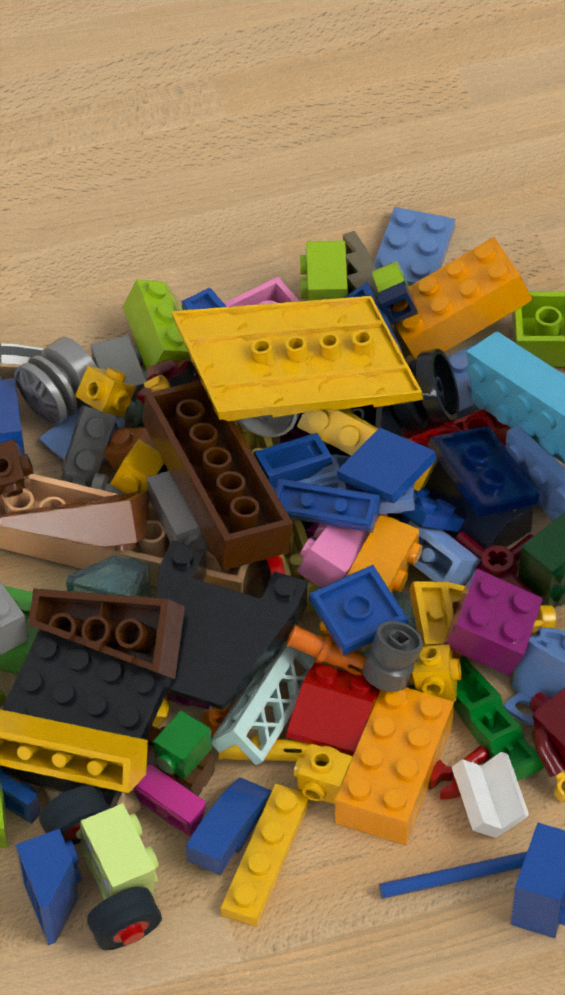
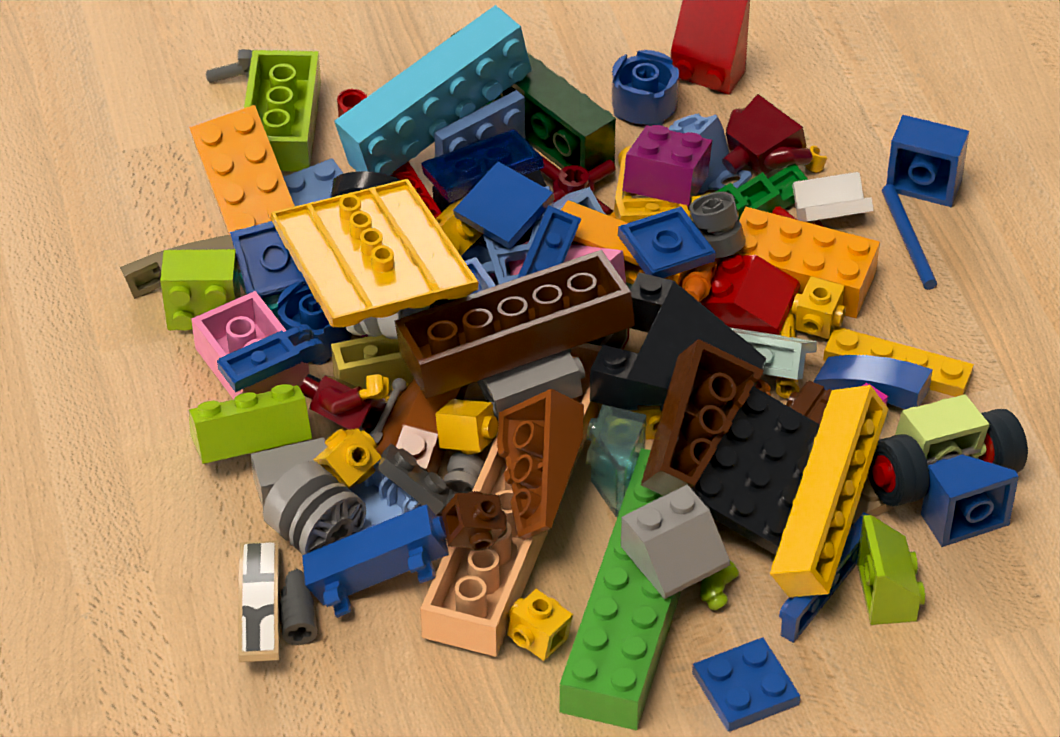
camera: 90 degrees left, 5 degrees down
(182, 745) = (809, 387): green brick -> none
(391, 289) = (239, 213): dark blue leg -> none
(415, 242) = (124, 235): medium blue plate -> none

